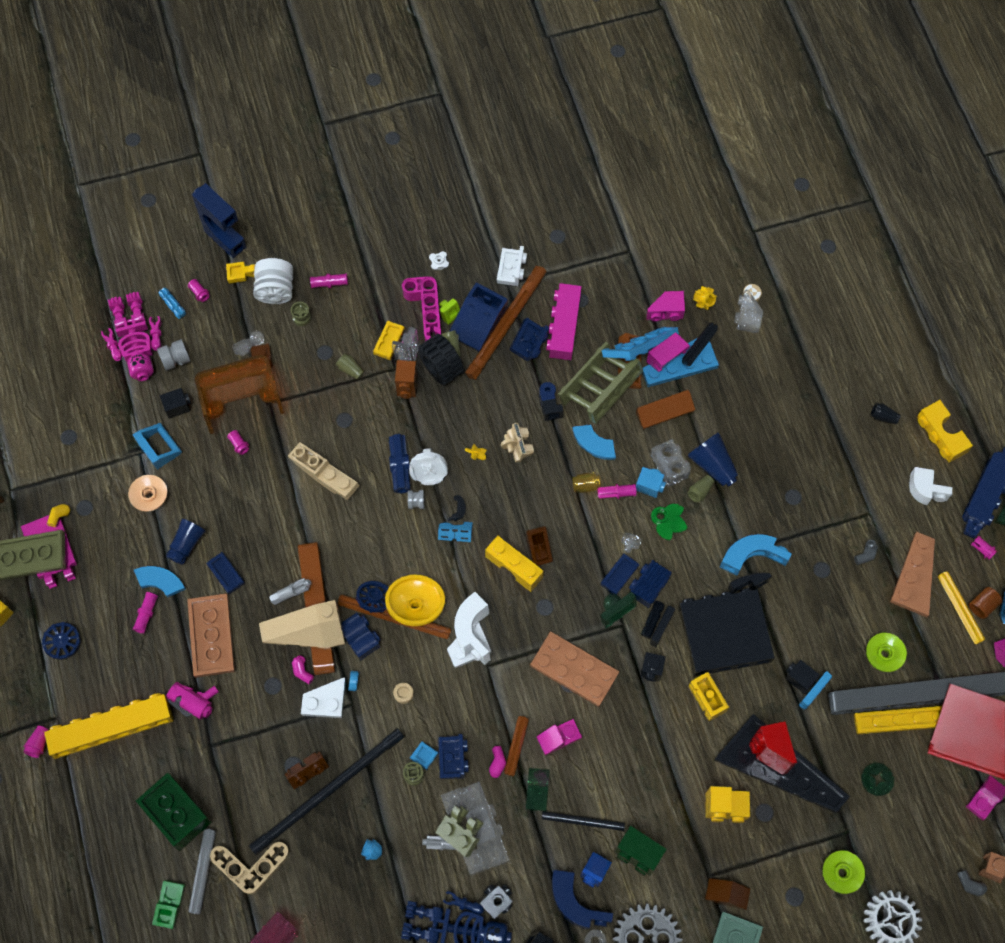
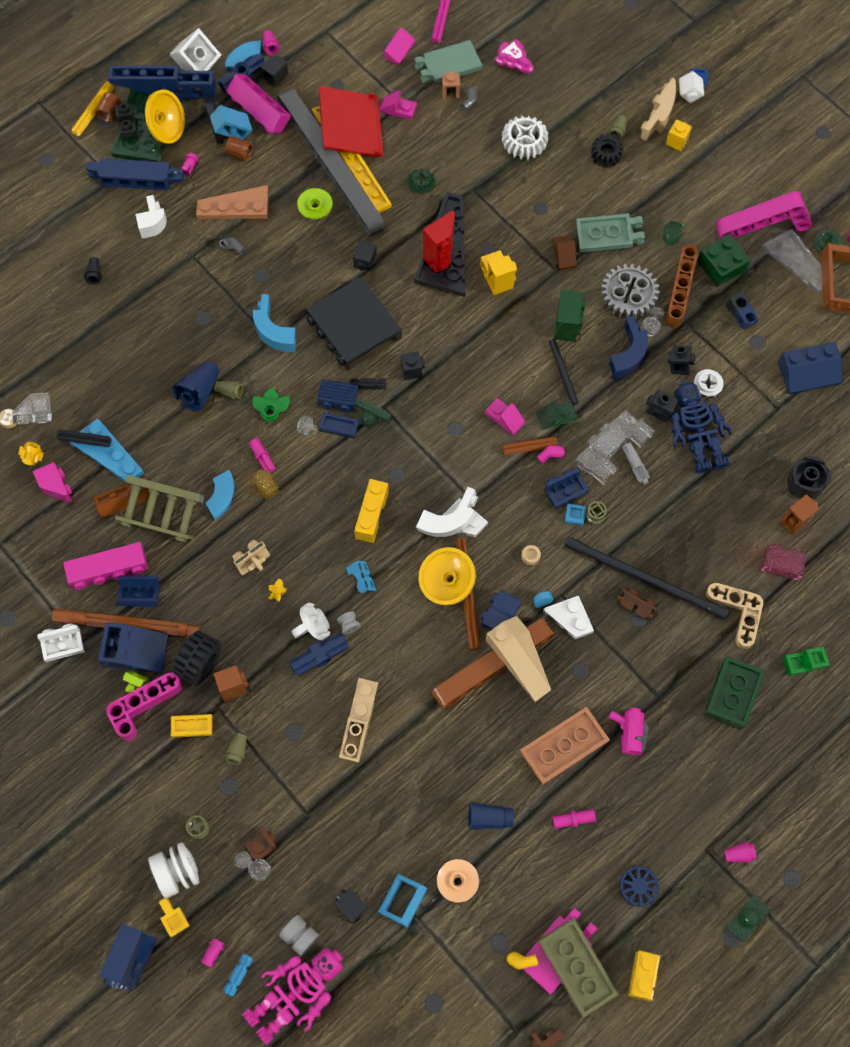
camera: 115 degrees left, 0 degrees up
(108, 726) = (692, 793): yellow brick -> none
(159, 578) = (534, 824): dark azure tile -> none
(202, 871) = (766, 647): light grey axle -> none
(225, 573) = (499, 765): dark blue tile -> none
(235, 382) = (300, 850): clear orange windscreen -> none
(240, 446) = (364, 820): dark pink pin -> none
(293, 589) = (491, 690): light grey piece -> none
(299, 670) = (555, 651): dark pink arm -> none
(329, 280) = (147, 818): dark pink pin -> none
(371, 850) = (674, 519): dark azure plate -> none
(373, 596) = (459, 616): dark blue wheel -> none
(408, 348) = (195, 696): clear bracket -> none
(439, 265) = (80, 724): white plate -> none
(453, 338) = (166, 663): olive cone -> none
(456, 834) = (629, 452): olive plate -> none
(461, 508) = (338, 582): black piece -> none
(539, 546) = (344, 498): reddish brown slope -> none
(548, 402) = (197, 548): leg -> none
(574, 669) = (441, 428): nougat plate -> none
(595, 870) = (600, 343): blue slope -> none
(640, 345) = (108, 485): dark azure wing -> none
(650, 482) = (241, 430): dark azure brick -> none
(662, 626) = (371, 371): black tile -> none
(665, 409) = (162, 447): dark orange slope -> none
(666, 463) = (219, 424): clear brick -> none
(667, 351) = (105, 460): dark pink hinge -> none
(708, 696) = (417, 314): yellow brick -> none
(754, 581) = (298, 318): black slope -> none
(815, 690) = (383, 244): dark azure tile -> none
(851, 865) = (509, 173): lime dish -> none
(950, 445) = (84, 232): yellow arch -> none
(961, 607) = (249, 166): yellow axle -> none

